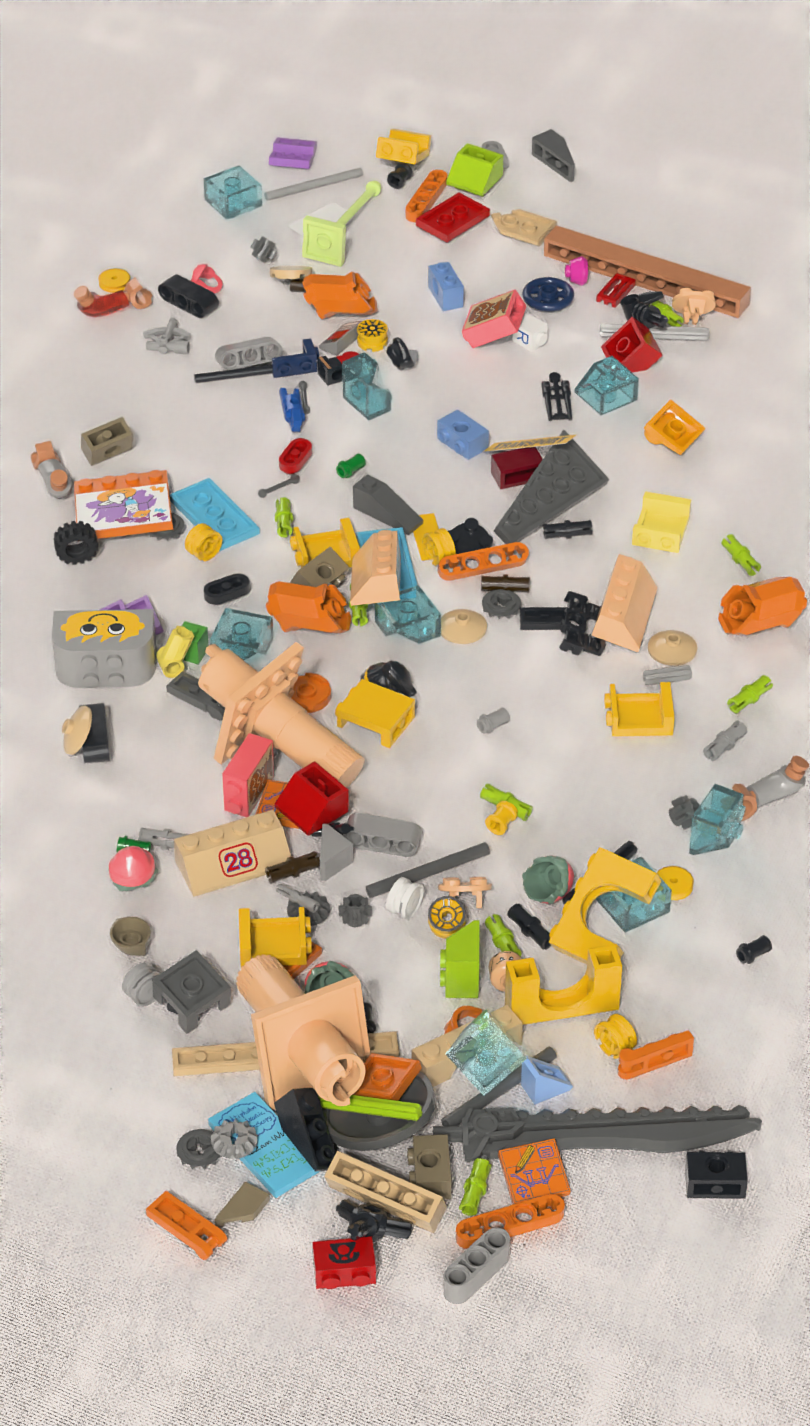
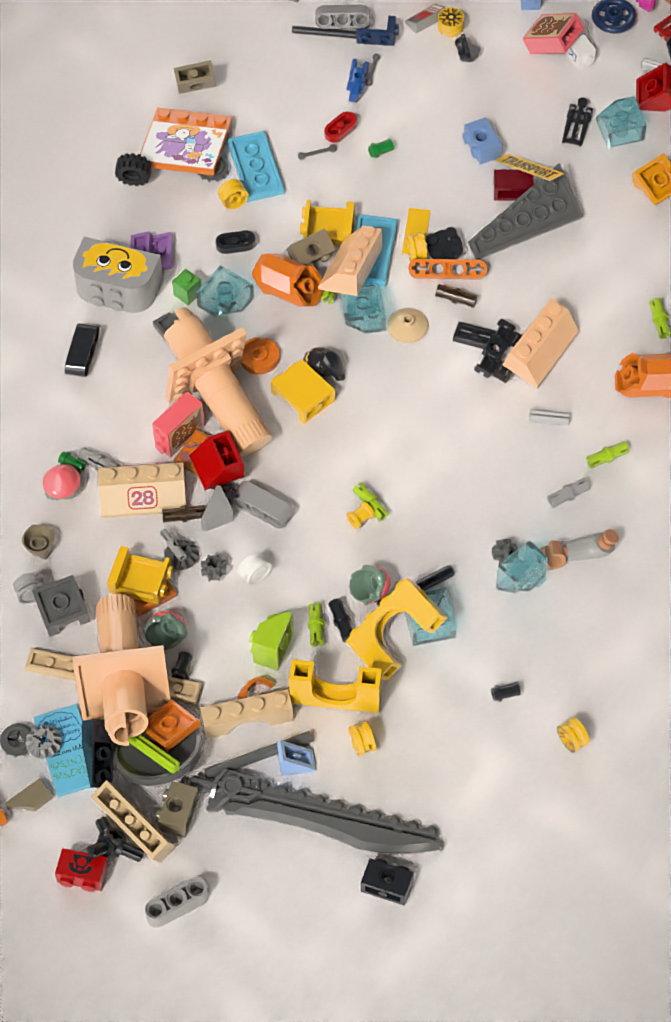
camera: 20 degrees right, 15 degrees up
(54, 474) = (144, 103): piece -> none
(76, 730) = (66, 345): tan dish -> none
(173, 653) = (168, 294): light yellow piece -> none
(283, 517) = (307, 184): lime pin -> none
(331, 369) = (411, 48): black leg -> none
(362, 387) = (420, 75): clear light blue slope -> none
(383, 504) = (391, 195): dark grey slope -> none
(429, 869) = (286, 545): dark grey piece -> none
(440, 909) = (271, 599): yellow wheel -> none
(475, 1187) = (205, 834): lime pin -> none
(476, 886) = (302, 571): light nougat plate -> none
(486, 1052) = (251, 729): clear light blue slope -> none
(488, 722) = (392, 422): light grey pin -> none
(497, 968) = (306, 650): light nougat head -> none
(505, 598) = (453, 309): dark grey gear -> none
(507, 1216) = (219, 866): orange beam -> none
(533, 1171) = (252, 837): orange tile -> none
(567, 529) = (529, 255): black pin -> none
(640, 712) = (511, 447): yellow panel -> none
(655, 1055) = (386, 763): orange plate -> none
(662, 522) = (608, 270): light yellow panel -> none
(672, 647) = (563, 397): tan dish -> none
(678, 880) = (473, 604): yellow piece -> none

